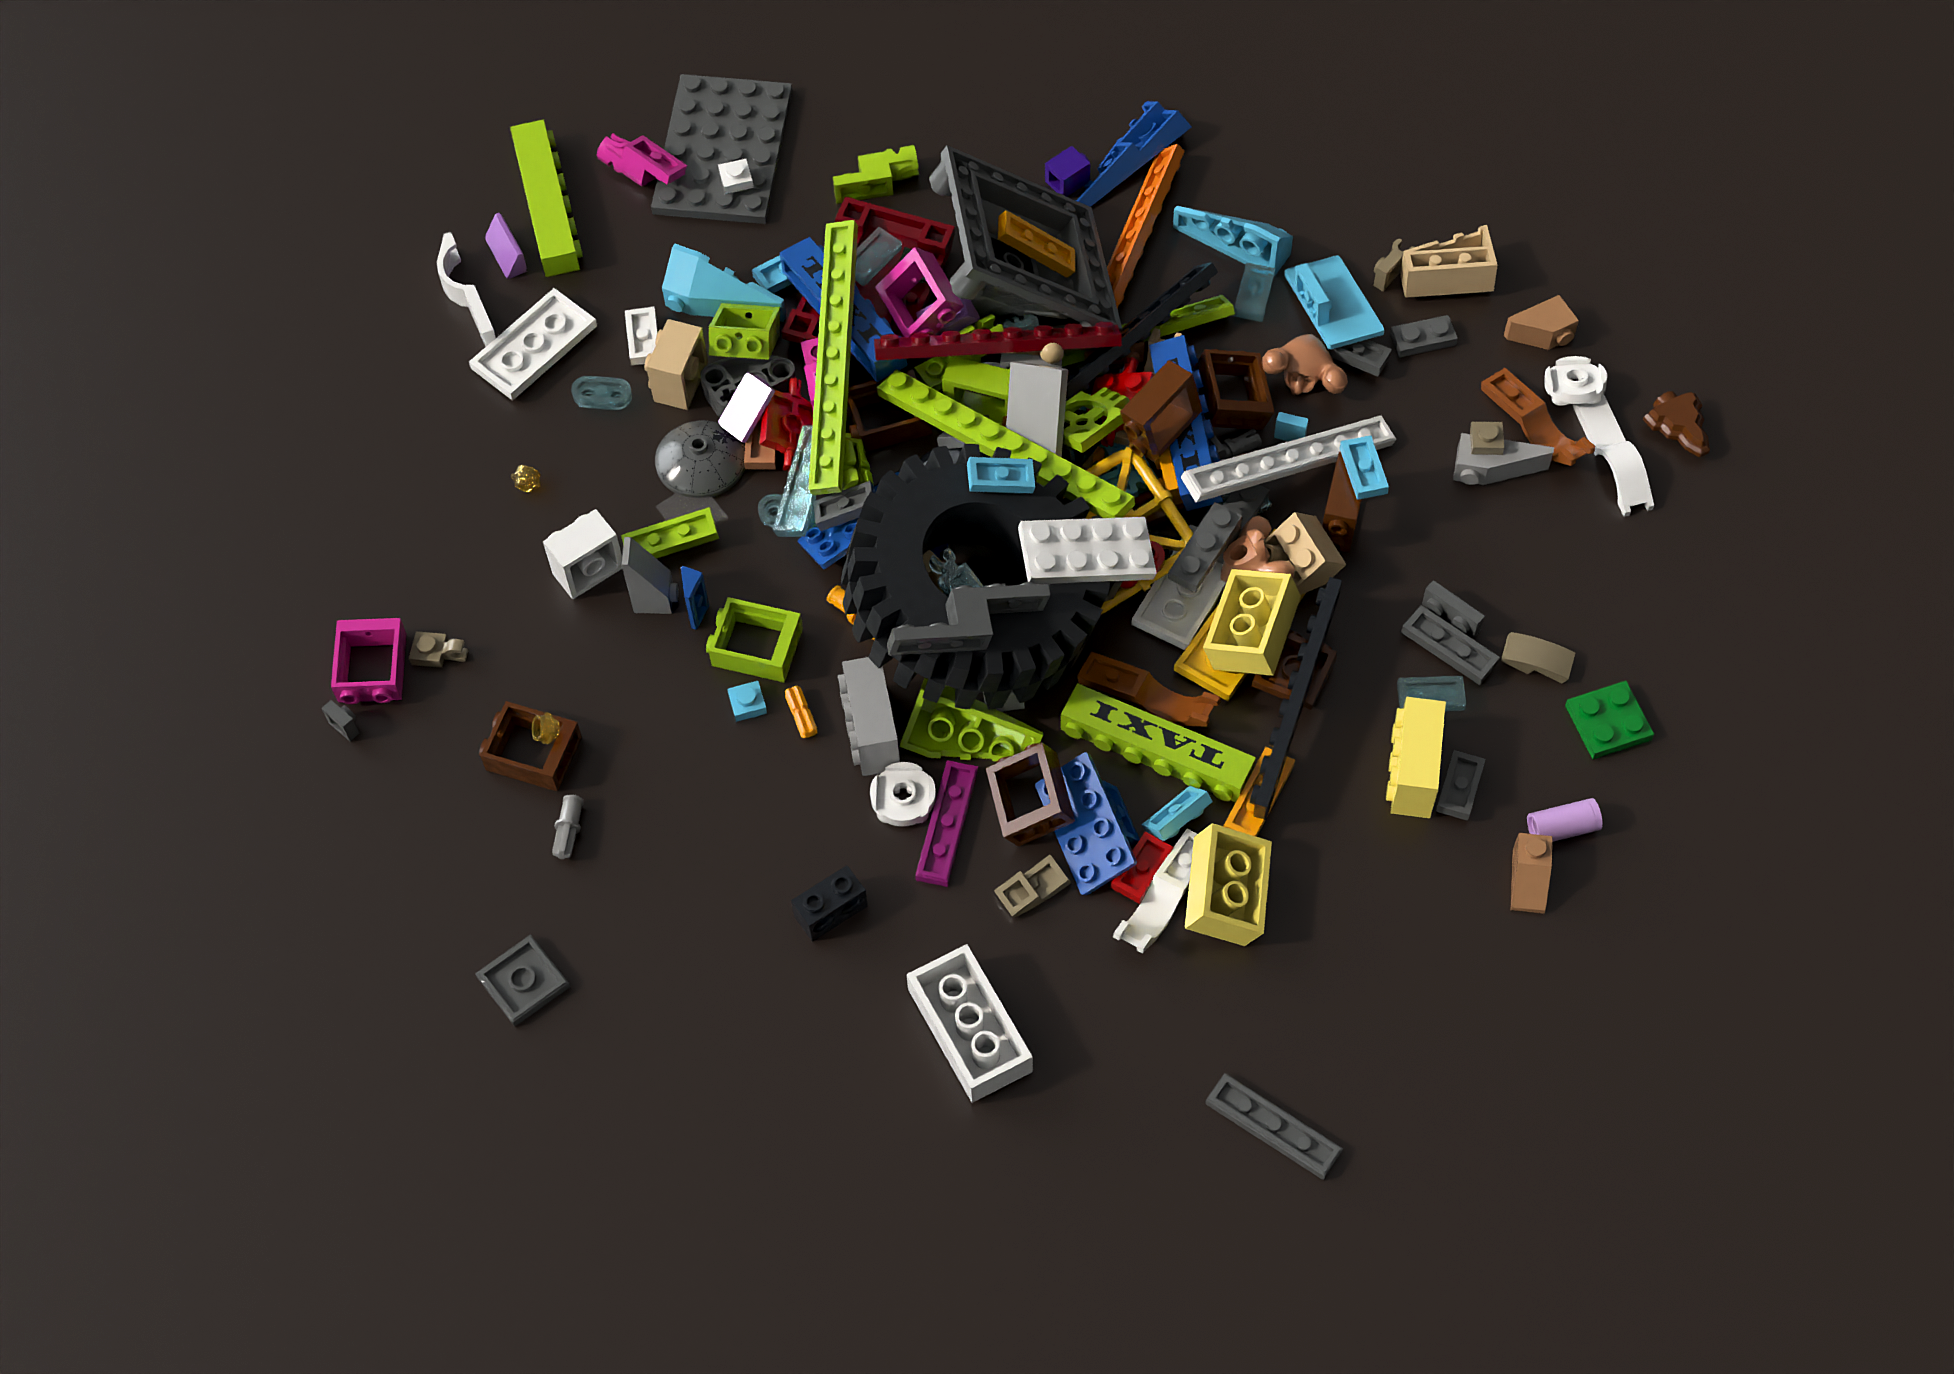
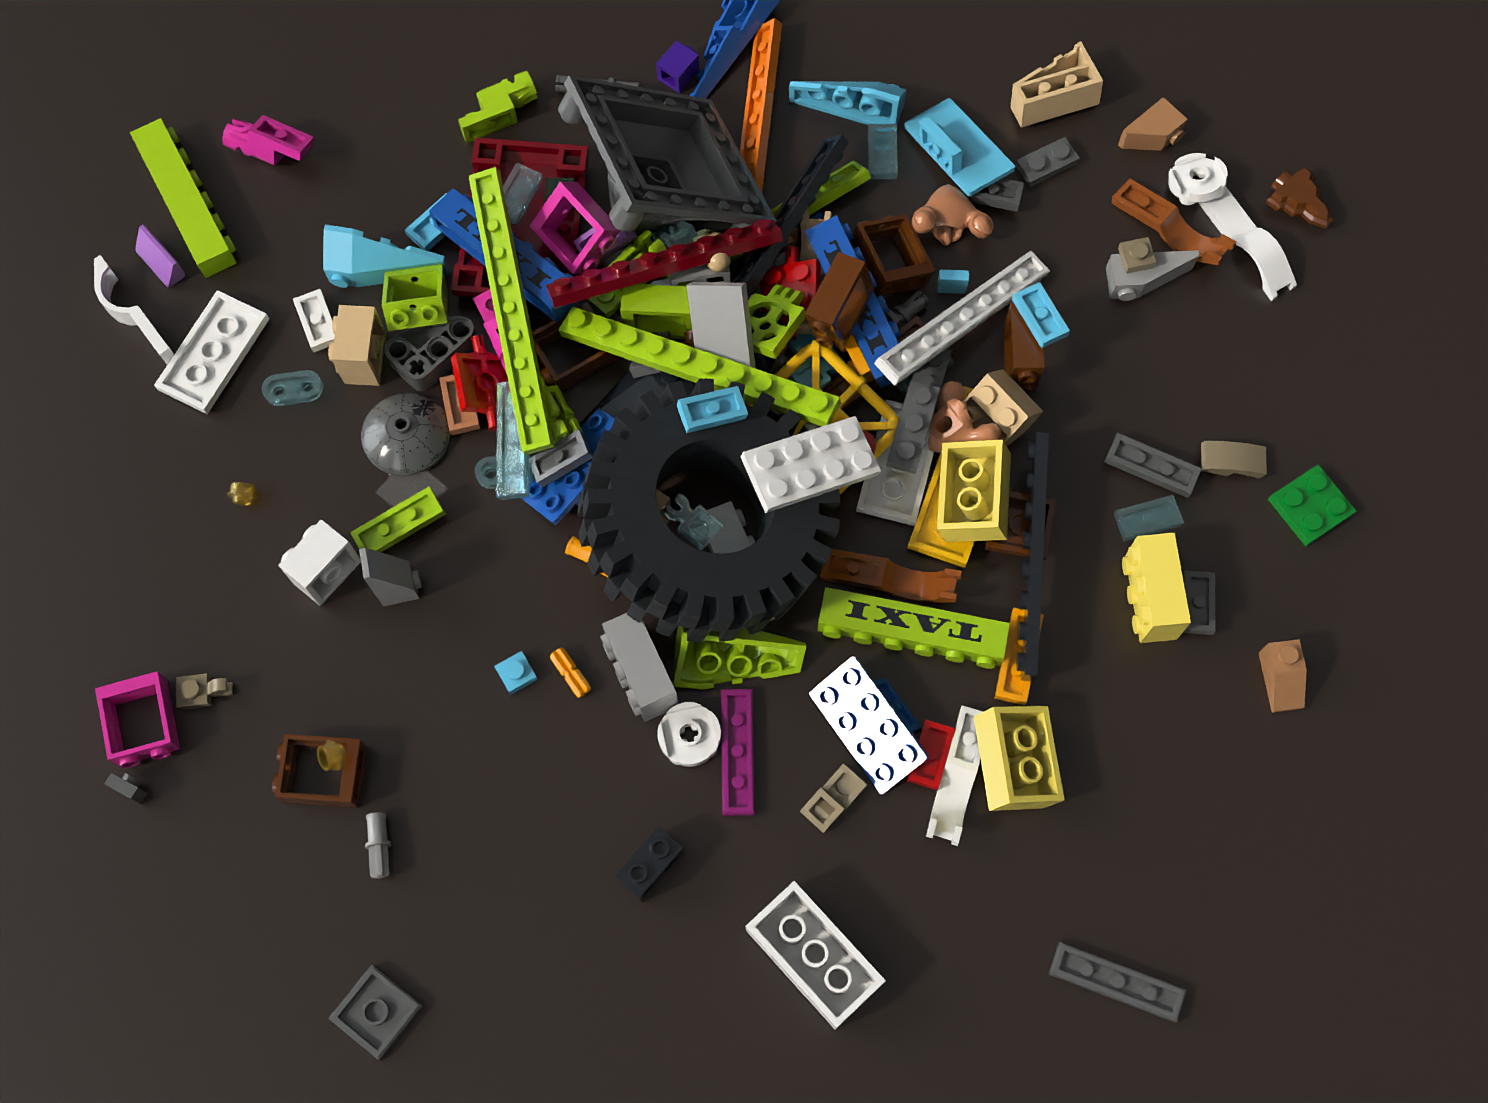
camera: 15 degrees left, 10 degrees up
(695, 595) = (439, 581): blue slope -> none
(718, 124) = (349, 102): dark grey plate -> none
(735, 176) = (363, 137): white plate -> none
(746, 406) = (438, 375): slope -> none
(759, 615) = (507, 584): lime window -> none
(968, 619) = (721, 568): dark grey bracket -> none
(1036, 243) = (675, 153): light orange plate -> none
(1040, 821) = (845, 720): reddish brown window -> none
(1175, 814) = (949, 693): medium azure plate -> none
(1389, 268) = (998, 101): dark tan plate -> none
(1453, 609) = (1146, 430): dark grey plate -> none
(1566, 820) = (1301, 616): lavender pin -> none

